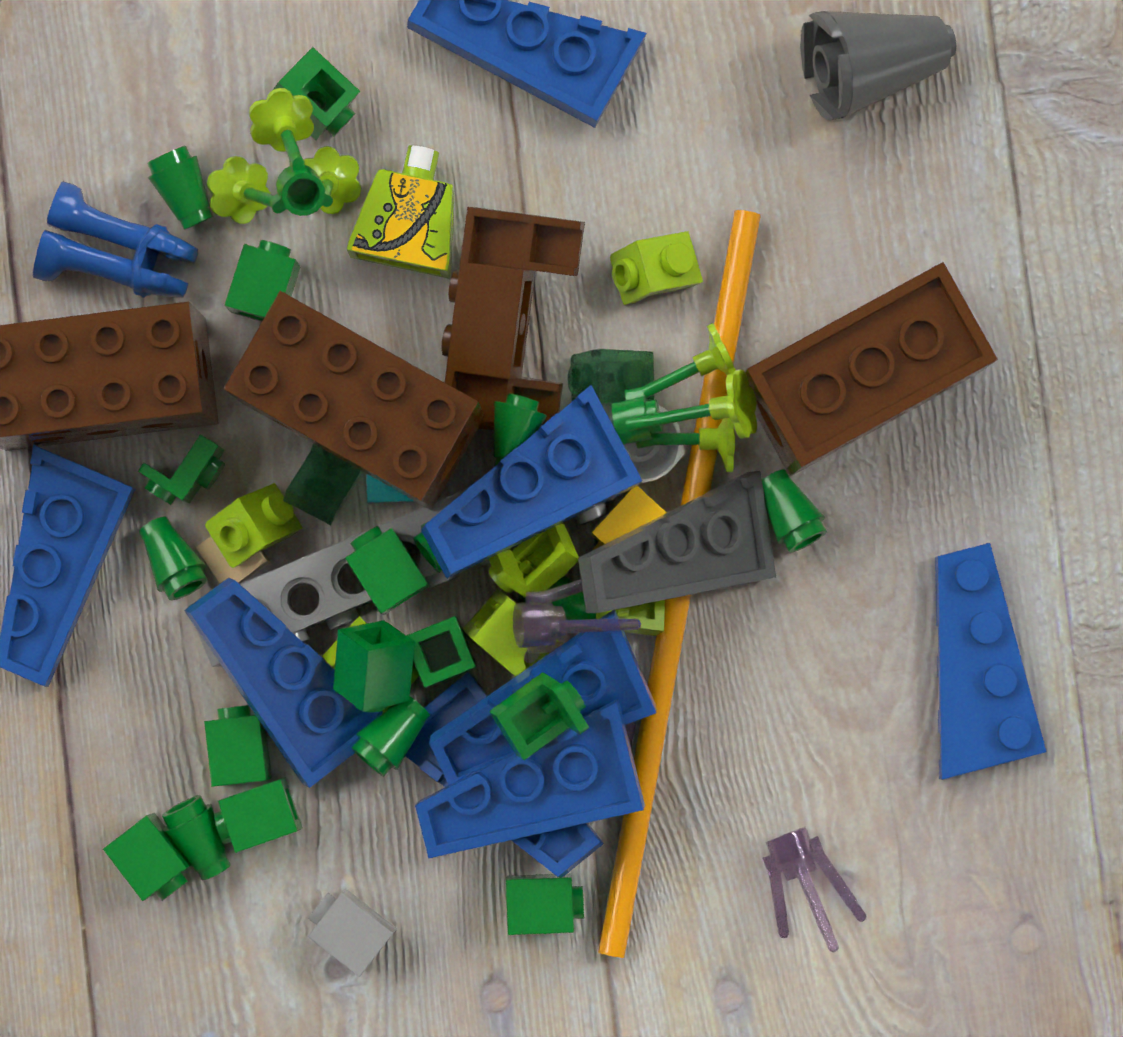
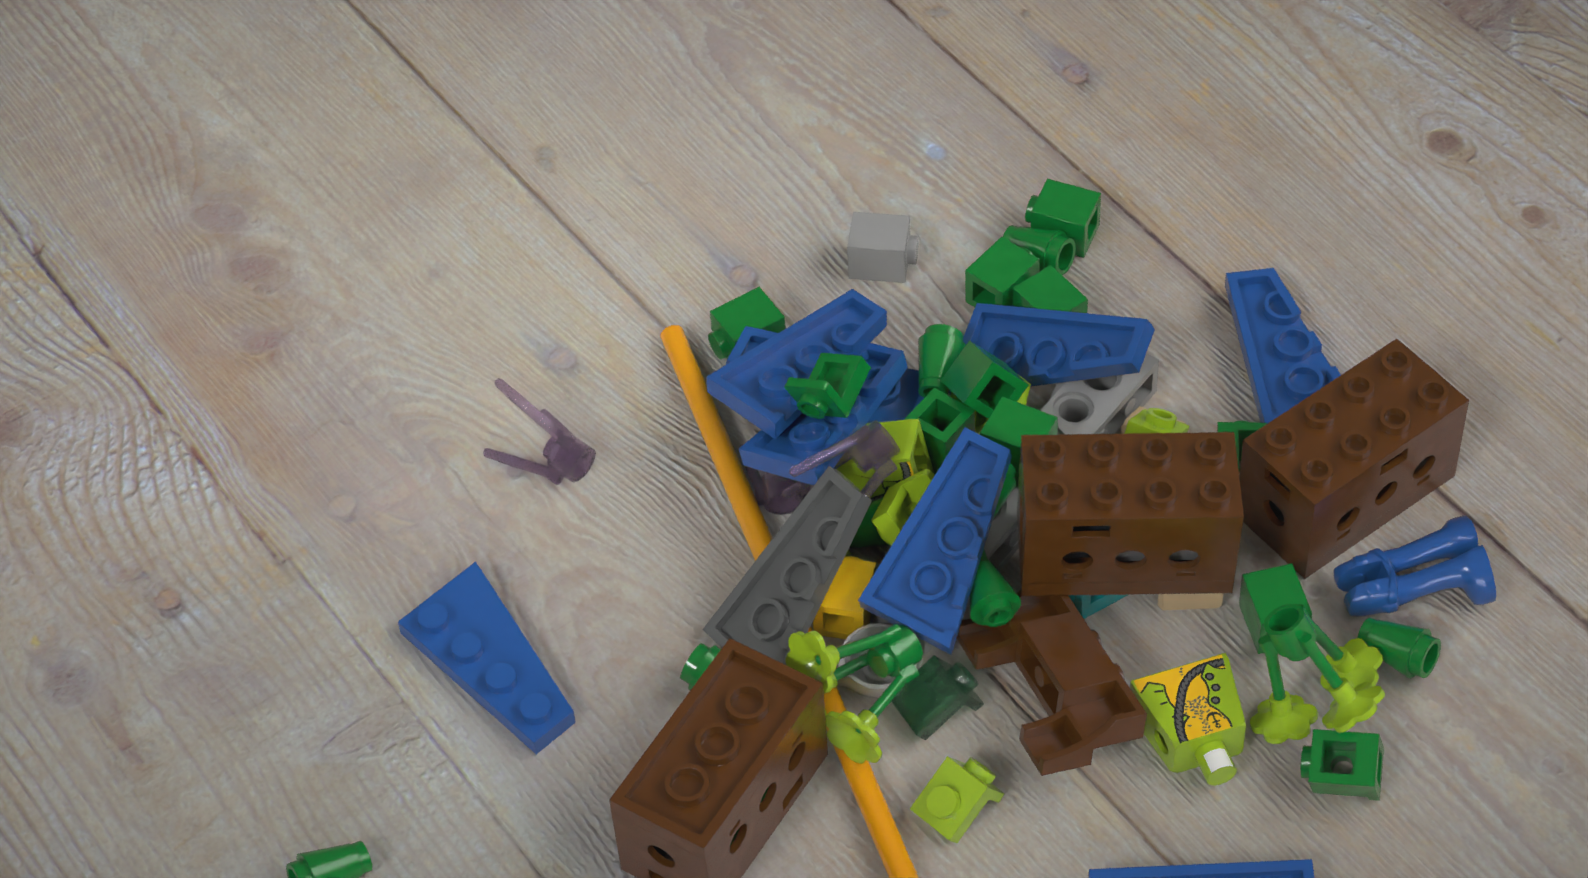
camera: 155 degrees right, 35 degrees down
(172, 561) = (1196, 399): green cone -> none

